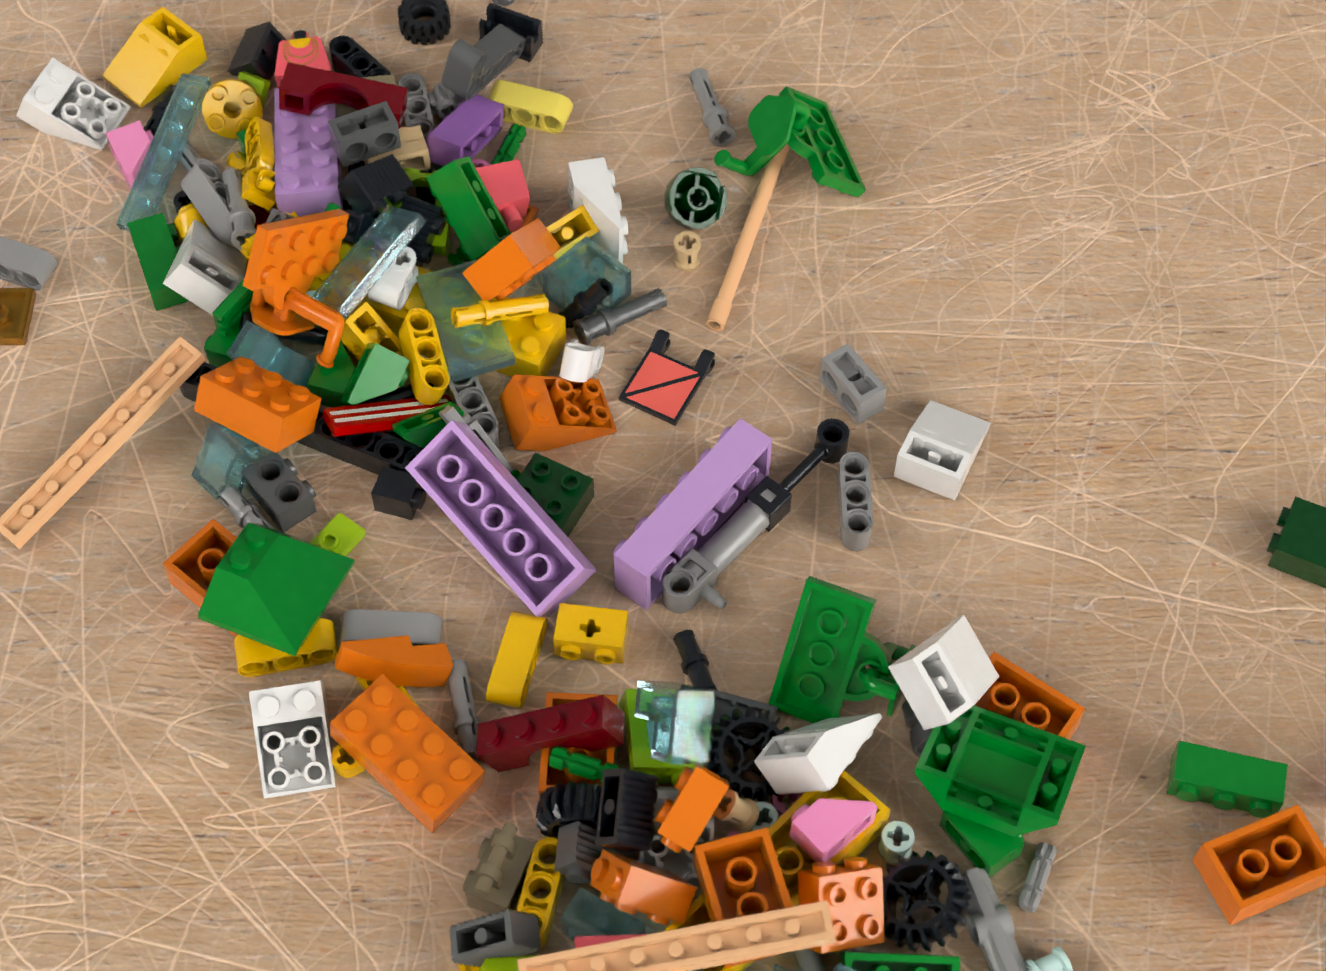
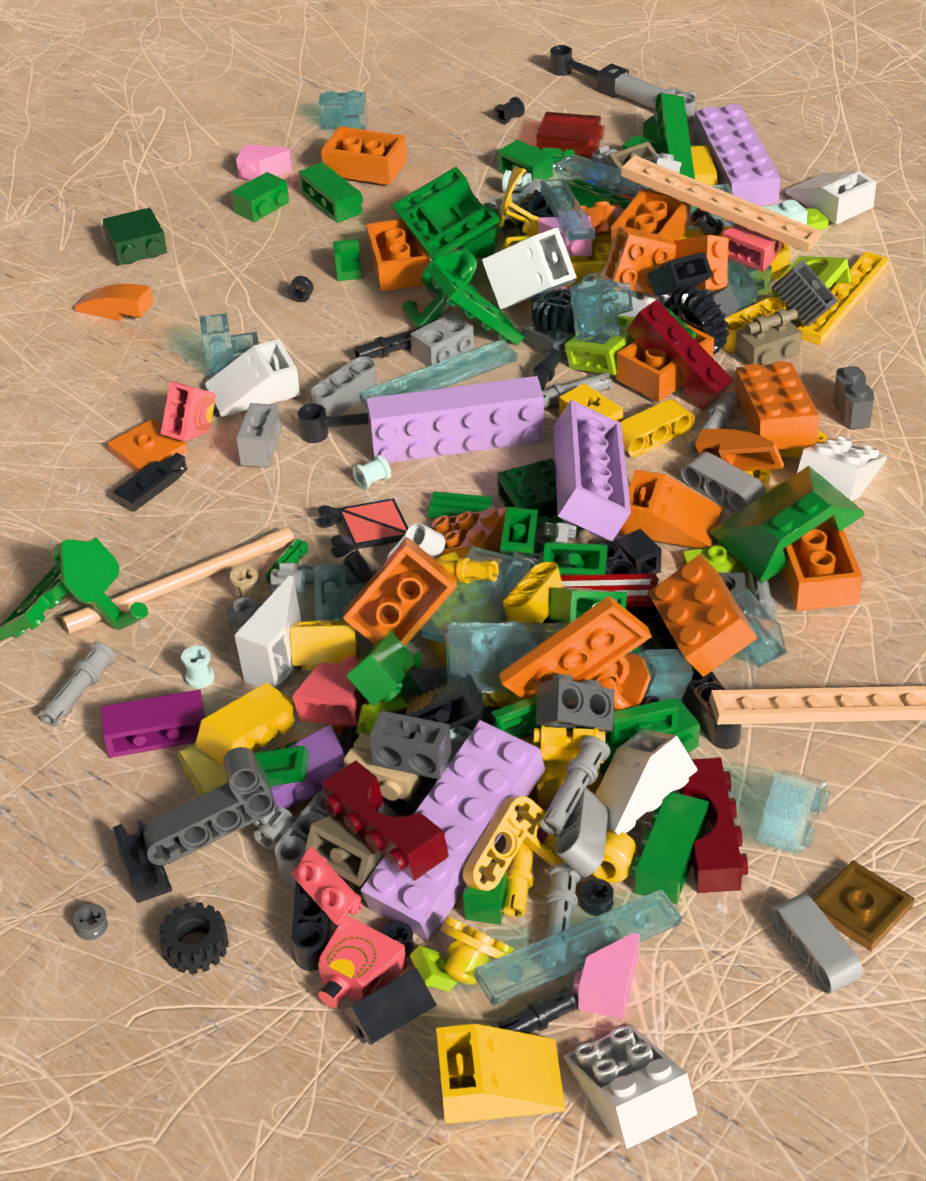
camera: 135 degrees left, 15 degrees down
(85, 335) = (790, 811): none -> clear light blue brick
(166, 316) = (716, 857): none -> dark red arch
(259, 188) = (542, 787): yellow tile -> none
(344, 840) = (853, 398): none -> dark grey brick
(365, 66) = (326, 886): none -> coral hinge
(406, 554) = (670, 511): none -> orange slope
(474, 108) = (285, 764): none -> green tile
(478, 382) = (519, 532): none -> green slope
(537, 135) = (246, 722): none -> yellow brick
(605, 446) = (456, 504): none -> green tile
(616, 113) = (152, 723): none -> magenta brick
(639, 172) = (197, 663): none -> light aqua bush
(648, 644) = (597, 382): none -> light grey pin
(653, 228) = (241, 612): none -> light grey gear
(657, 273) = (278, 576): none -> light grey gear
(687, 301) = (293, 554): none -> green axle
(695, 198) = (196, 607): dark green cylinder -> none
(717, 423) = (371, 472): none -> light aqua bush
(804, 561) = (447, 372): none -> clear light blue tile
(860, 841) = (567, 210): none -> clear light blue tile
(884, 587) = (367, 349): none -> black pin
(889, 291) = (150, 482): none -> black hinge
(897, 832) = (531, 222): none -> yellow plant
(939, 351) = (187, 411): none -> coral torso
(944, 674) = (439, 231): white slope -> none
(947, 328) = (145, 445): none -> orange plate
(1009, 457) = (221, 346): none -> clear light blue brick
(1060, 602) = (305, 284): none -> black bush
(1067, 671) = (347, 260): none -> green panel
(1206, 452) = (116, 301): none -> orange slope
(1286, 712) = (260, 197): none -> green brick

